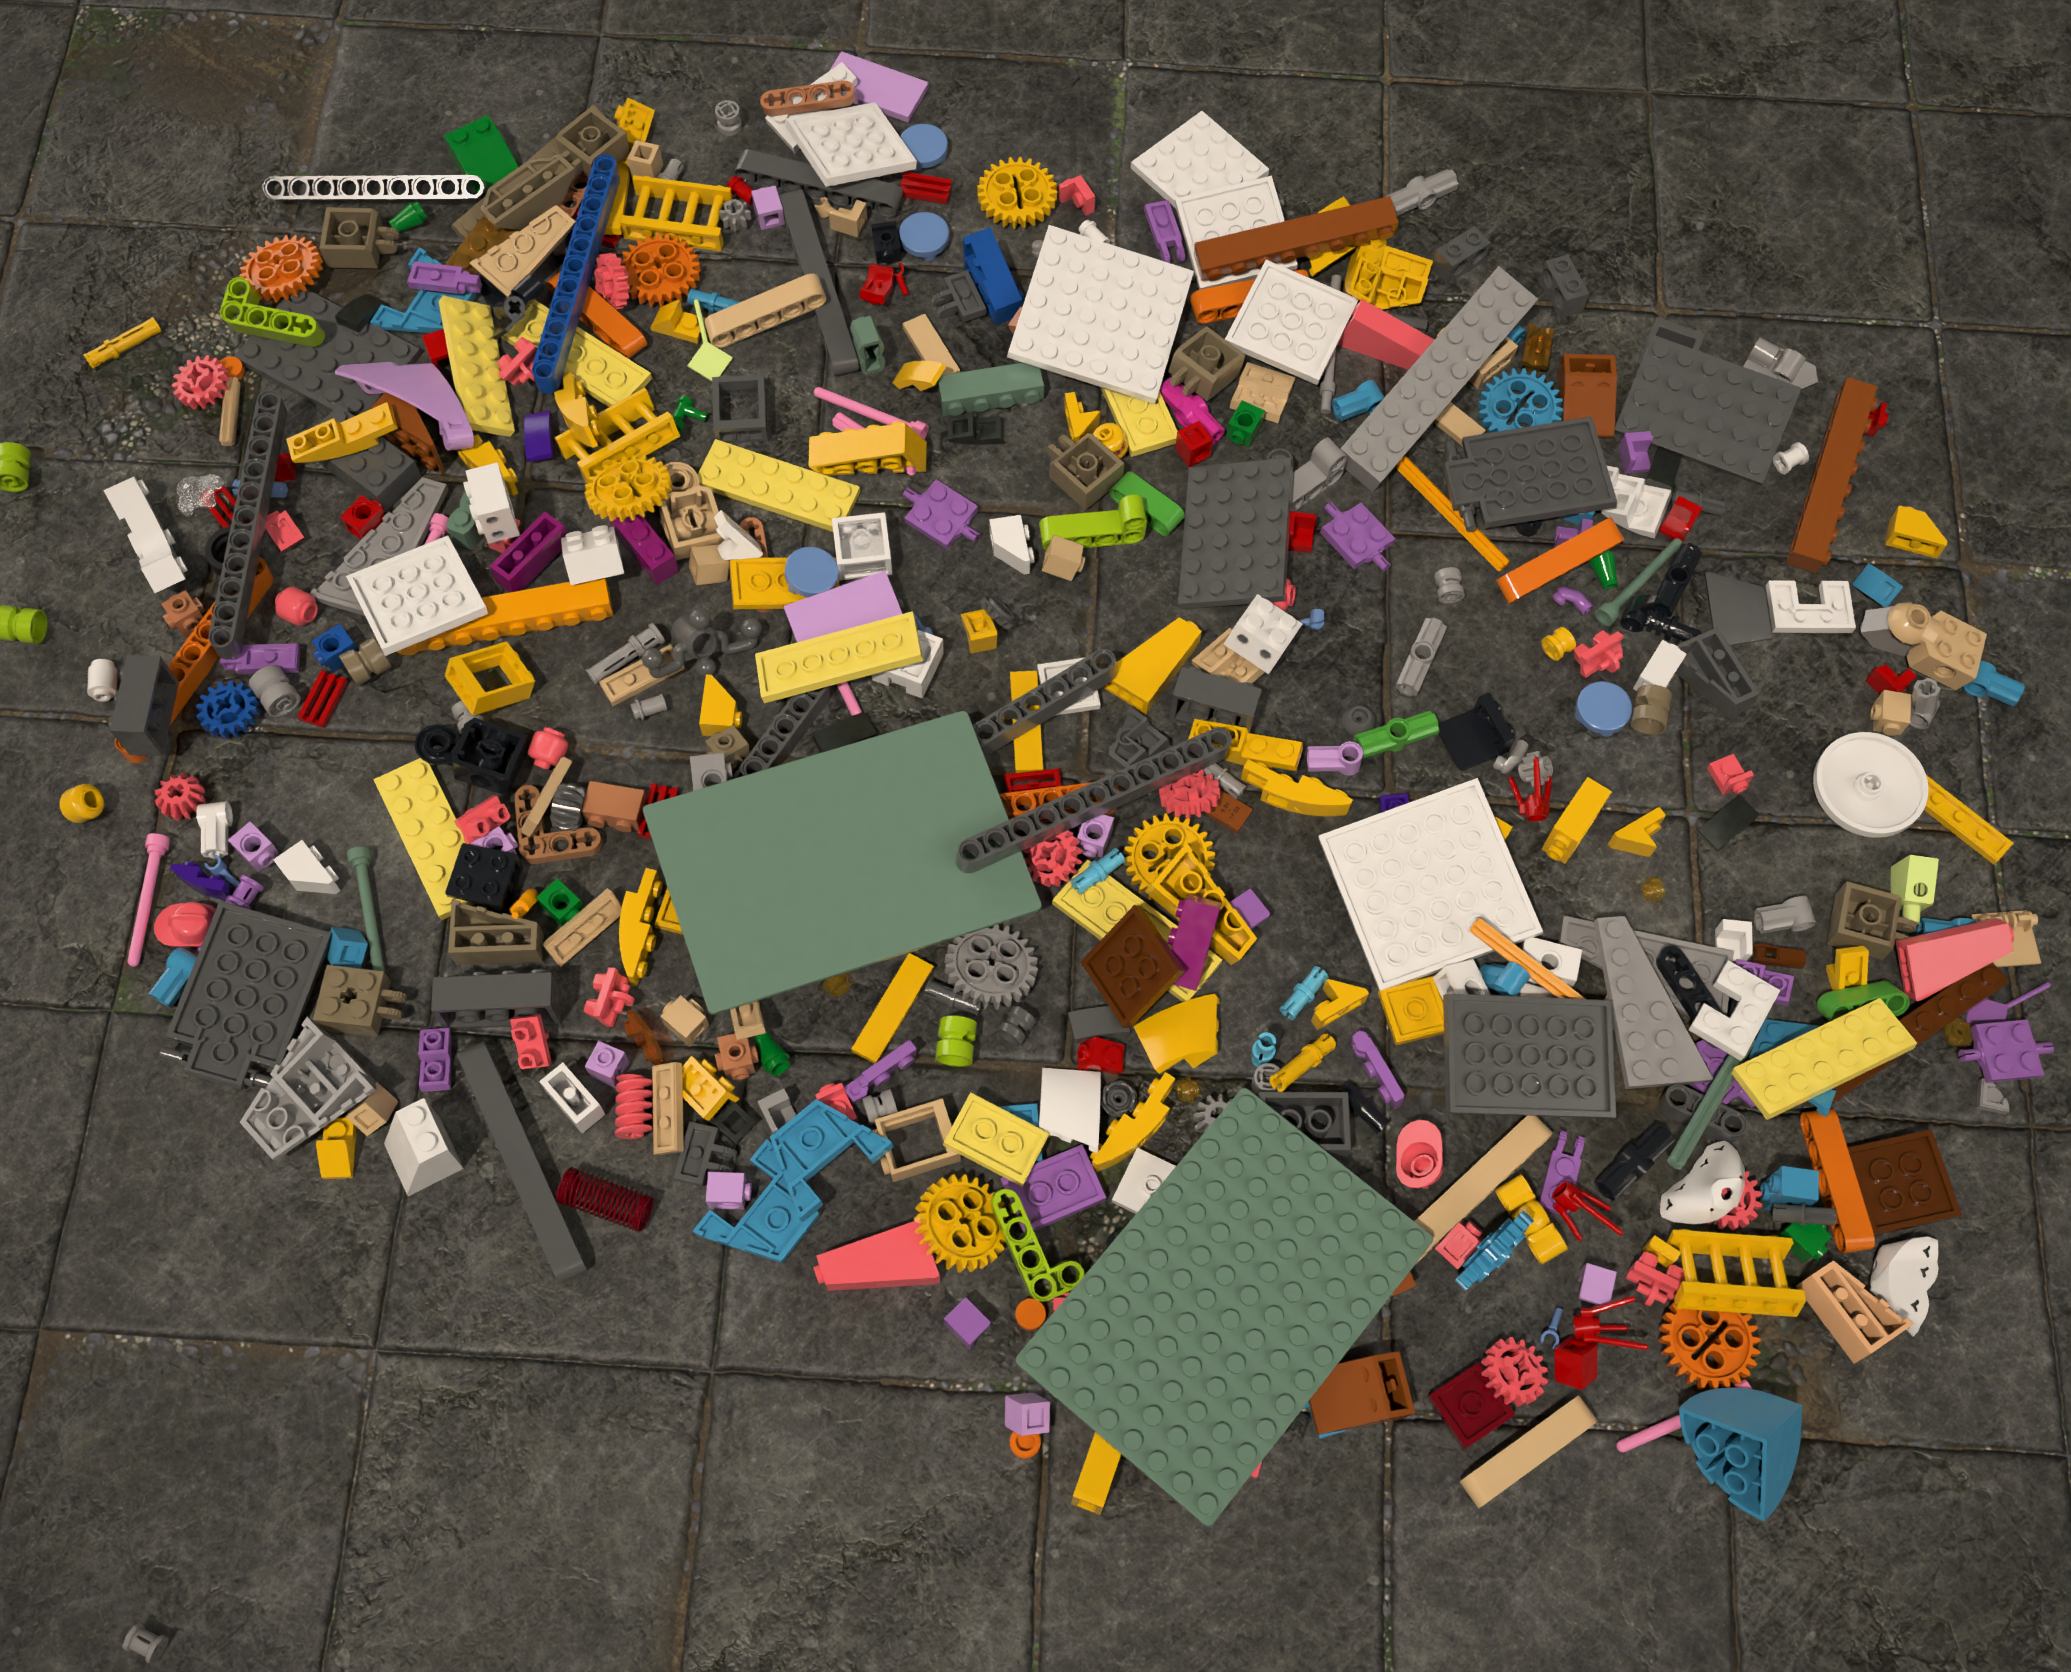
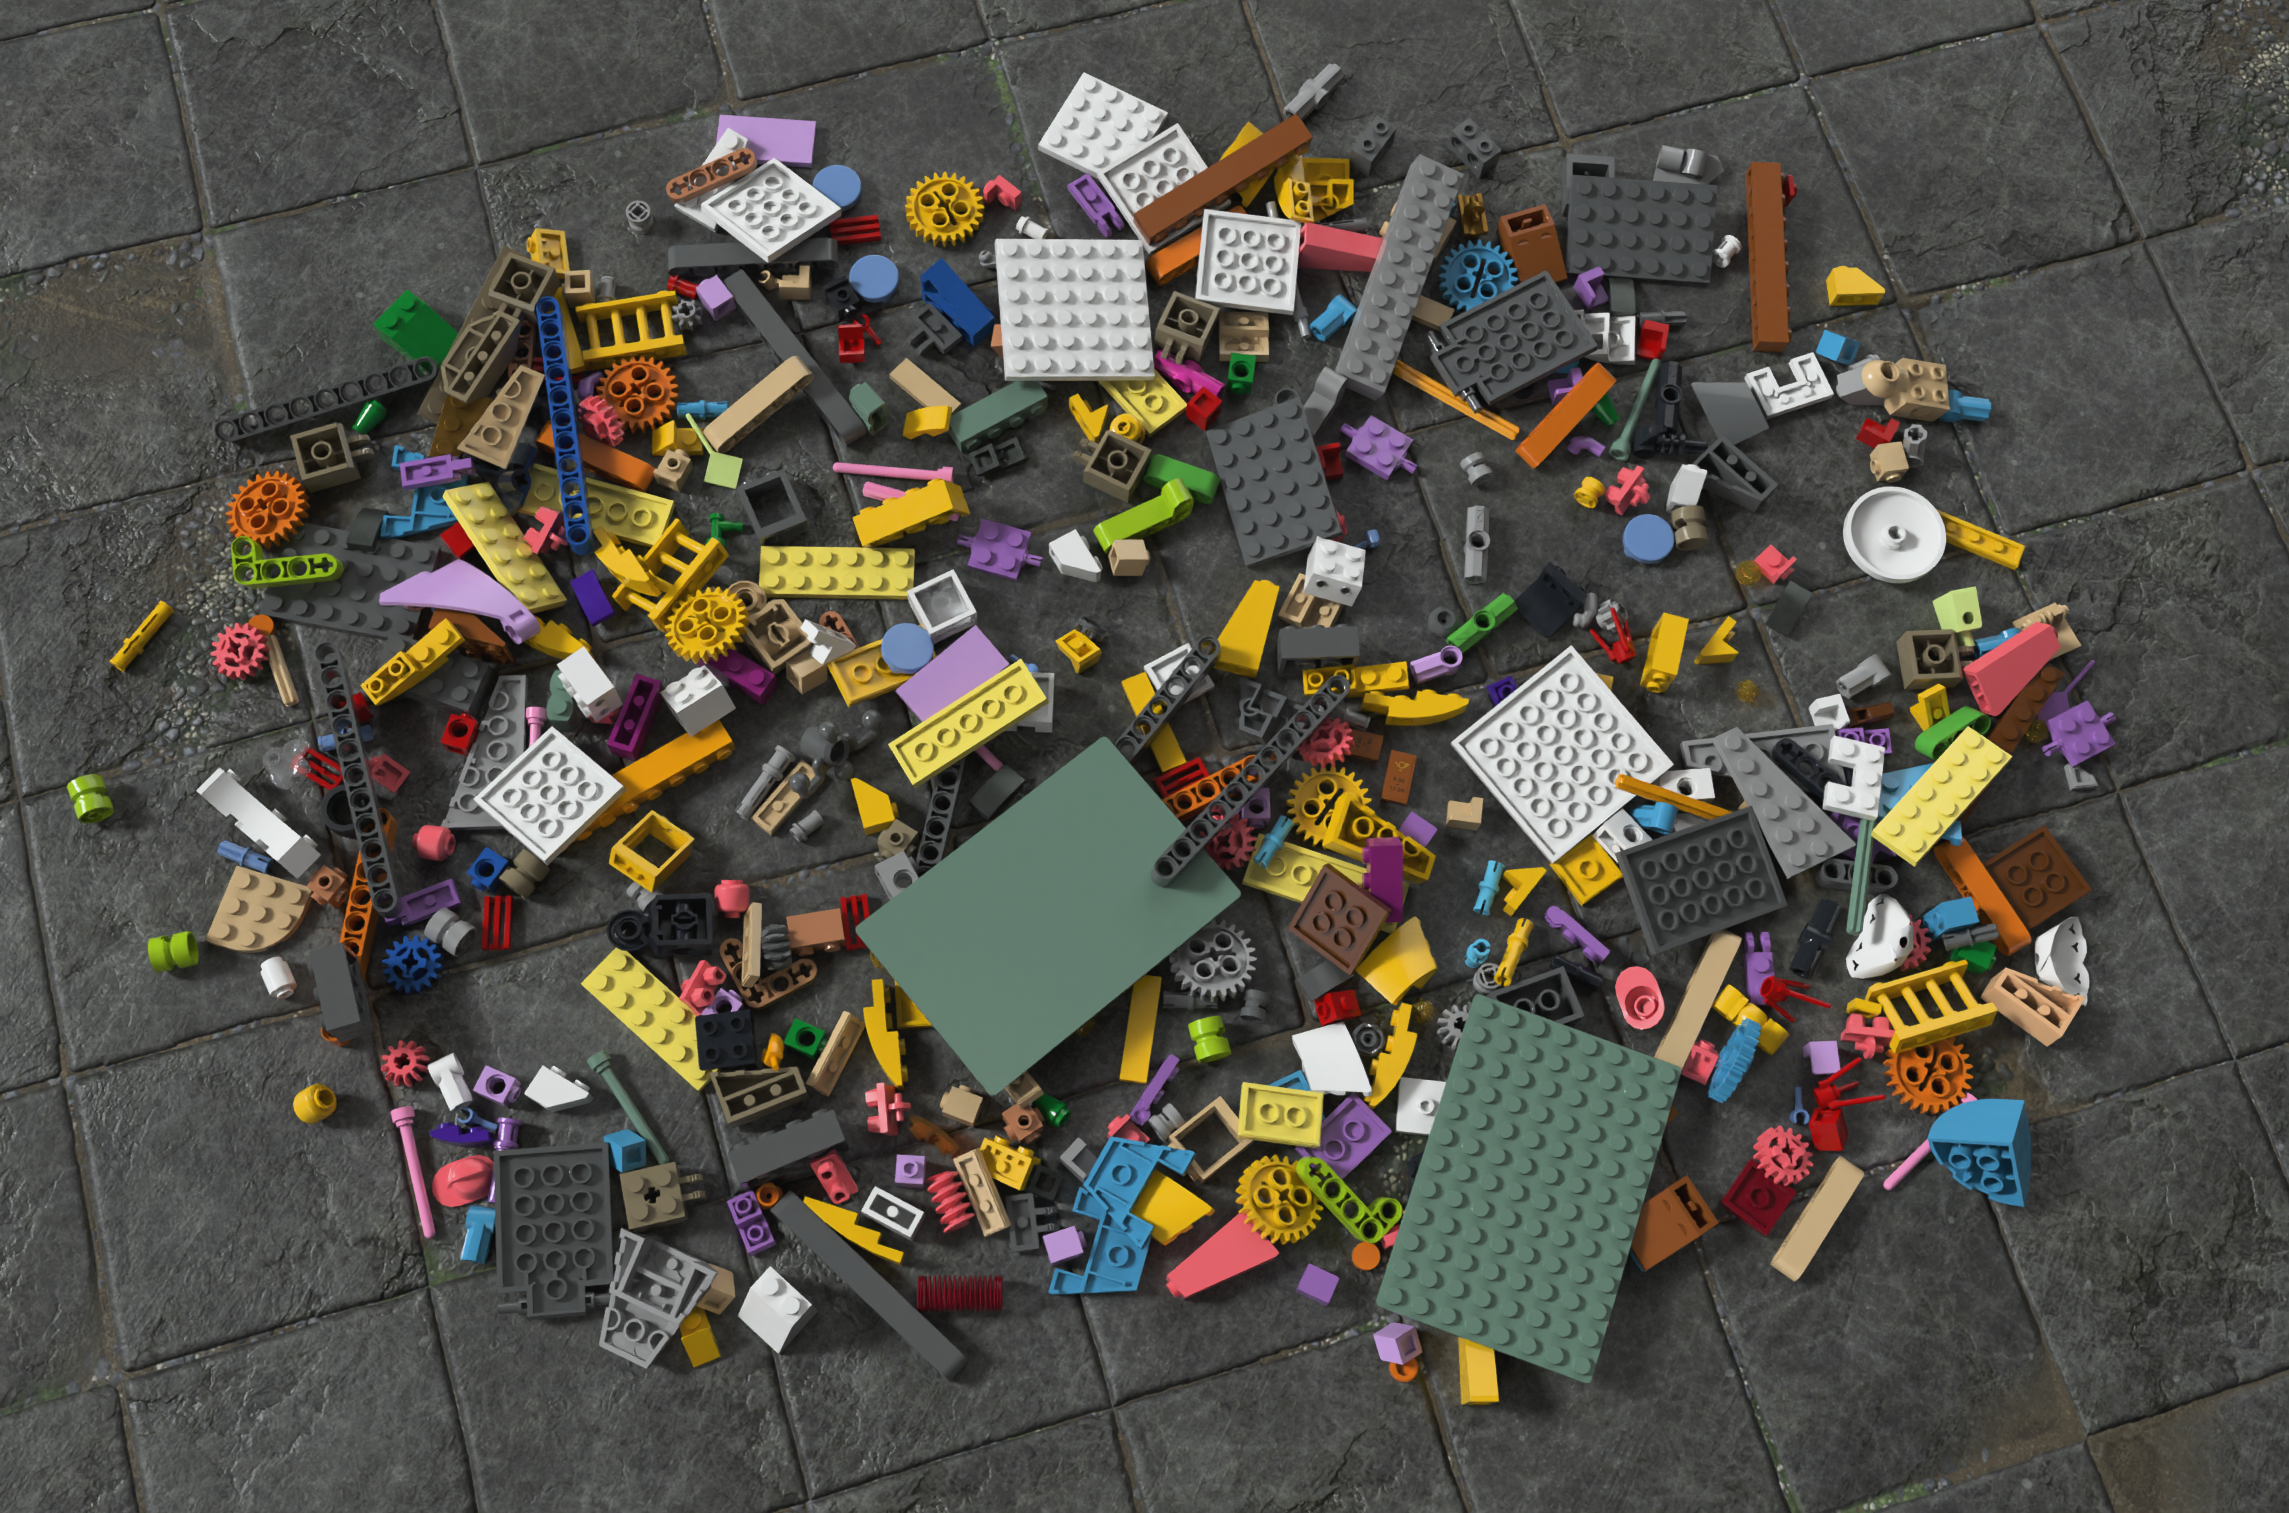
camera: 25 degrees left, 5 degrees up
(112, 617) = (258, 912): none -> tan plate
(123, 563) = (245, 856): none -> medium blue axle
(459, 1033) = (768, 1188): none -> orange plate
(525, 1094) = (845, 1224): none -> yellow slope
(619, 246) = (587, 385): none -> medium lavender arm
(663, 346) = (674, 476): none -> tan brick
(845, 1190) = (1169, 1208): none -> yellow slope
(1252, 855) = (1398, 778): none -> dark orange tile
(1306, 913) = (1465, 815): none -> tan panel
(1698, 774) = (1748, 572): none -> clear yellow plate

